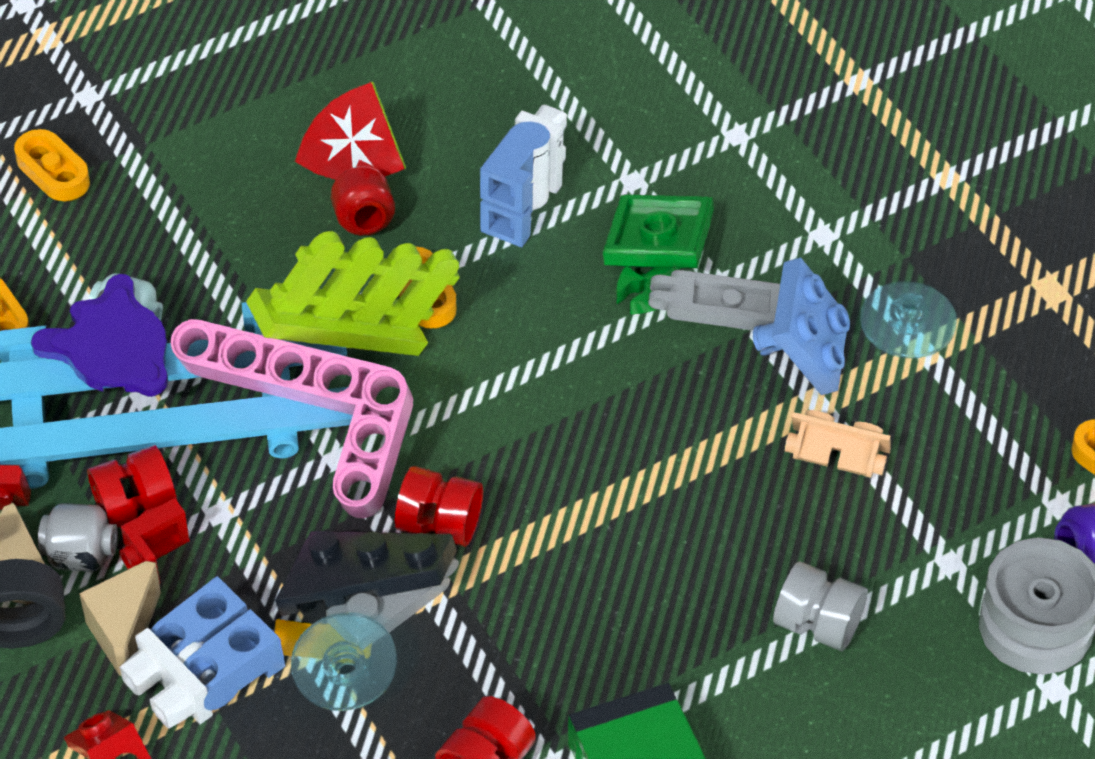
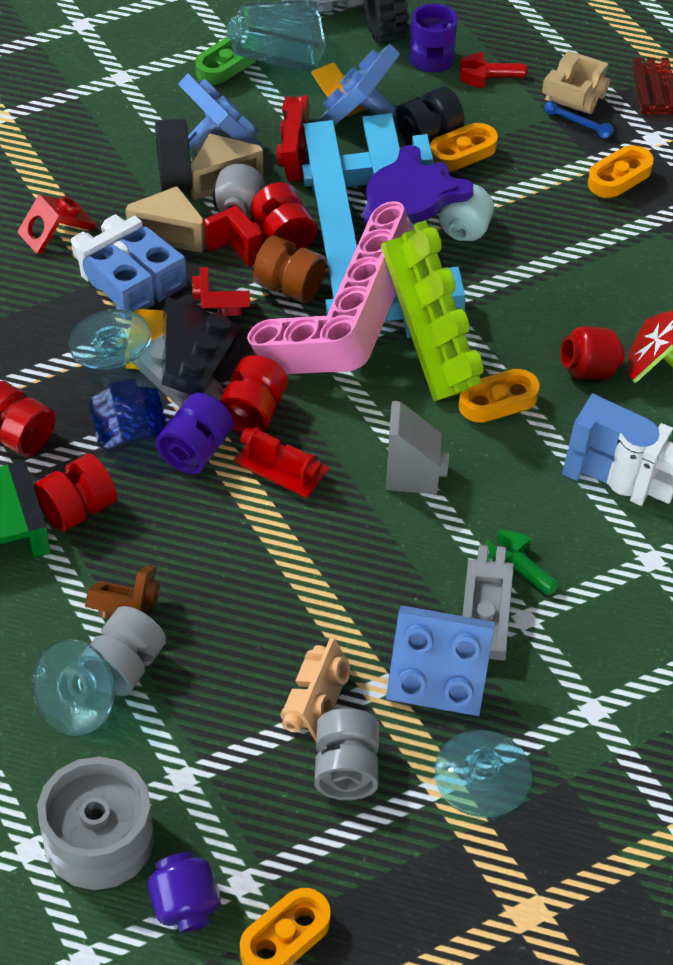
camera: 90 degrees right, 0 degrees up
(225, 478) = (294, 270): none -> dark orange wheel
(267, 548) = (228, 302): none -> red bracket
(475, 634) = (126, 413): none -> clear blue hair
(495, 557) = (194, 433): none -> dark purple wheel
(528, 359) = (414, 453): none -> light grey slope
(531, 484) = (280, 463): none -> red hinge
(595, 666) = (80, 490): none -> red wheel
(658, 231) = (572, 563): green plate -> none
(745, 611) = (109, 596): none -> dark orange bracket
(877, 643) = (59, 691): none -> clear light blue dish
(905, 408) = (347, 754): none -> light grey wheel

